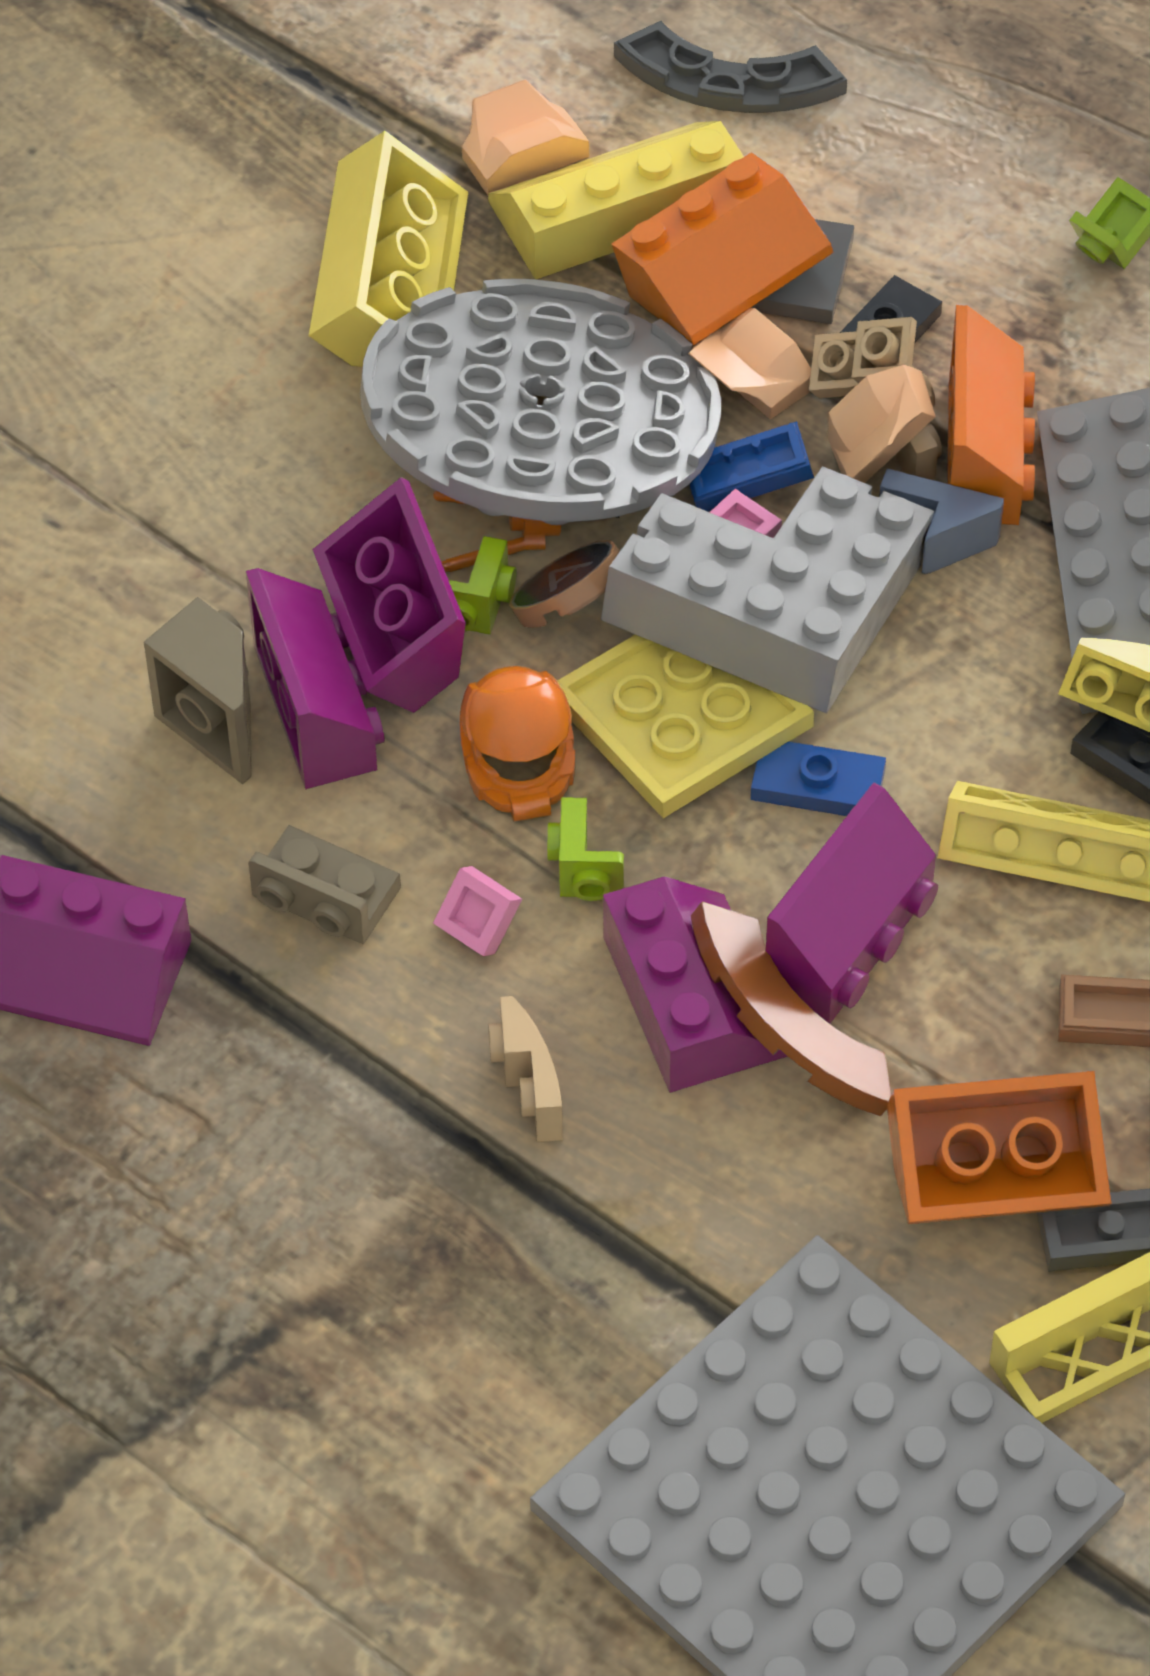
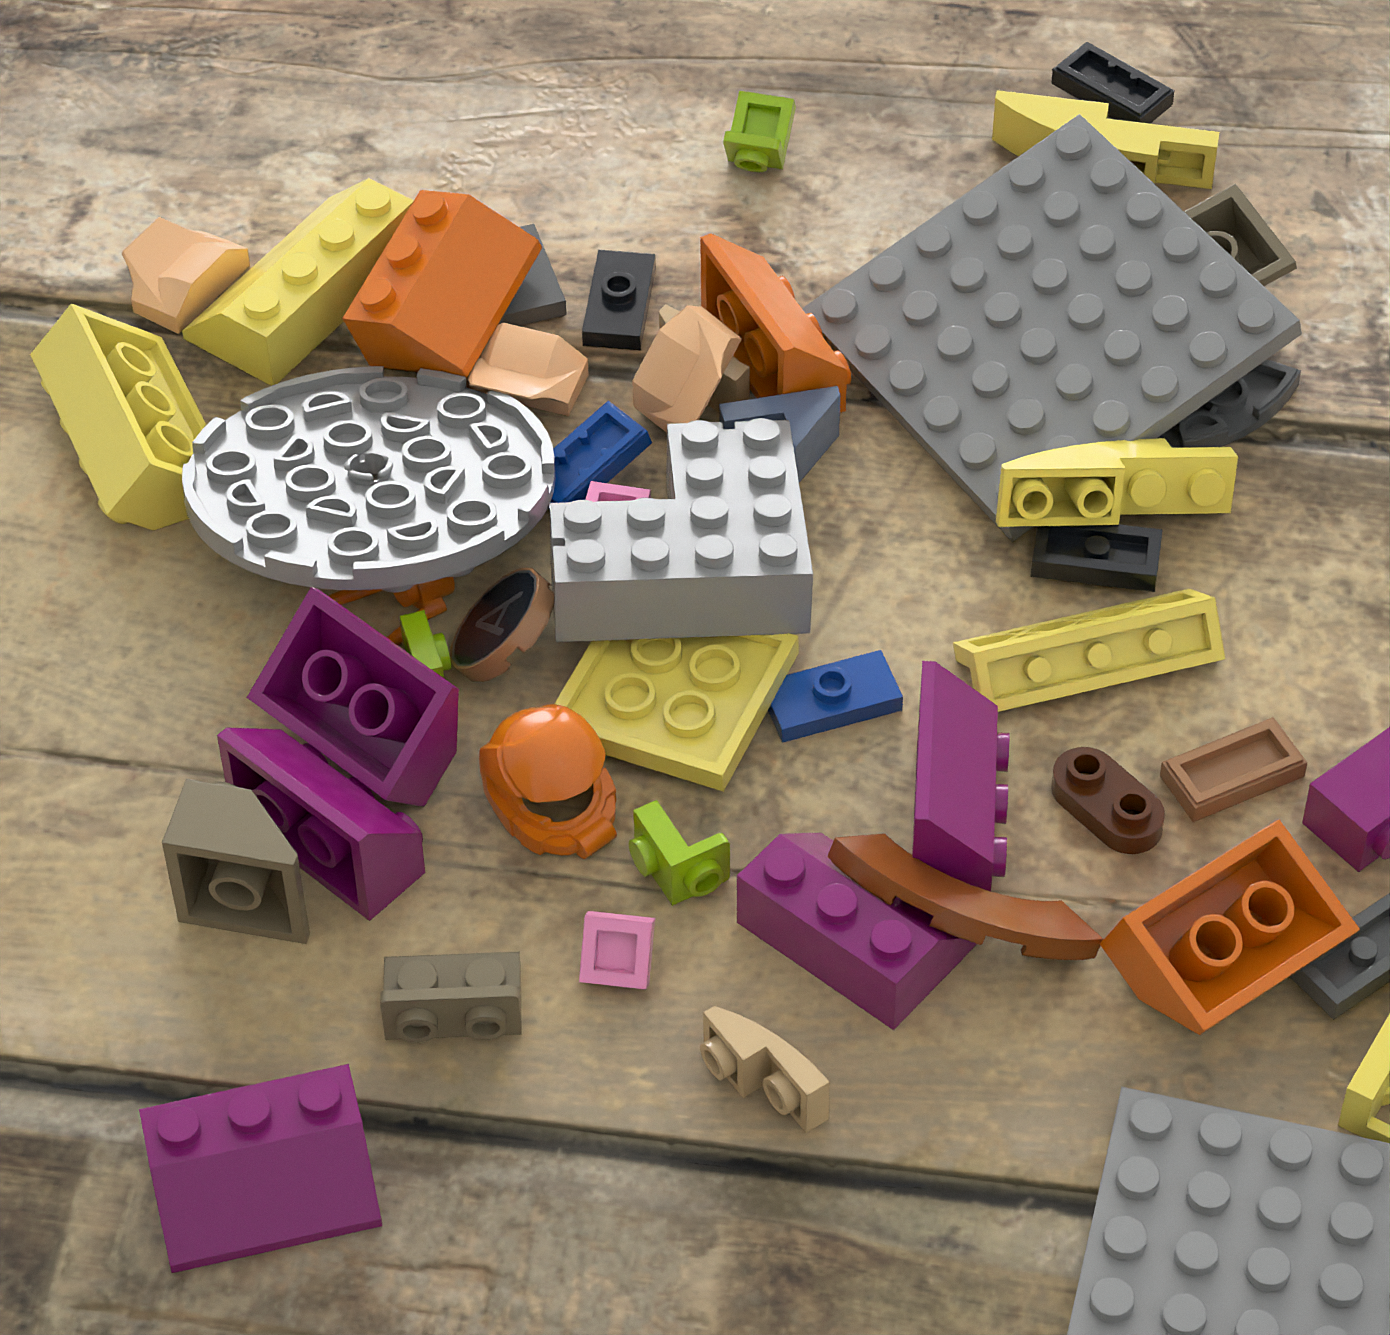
camera: 30 degrees left, 5 degrees down
(696, 77) = (362, 147): dark grey tile -> none
(848, 357) = (628, 326): tan slope -> none
(990, 980) = (1103, 796): none -> reddish brown plate

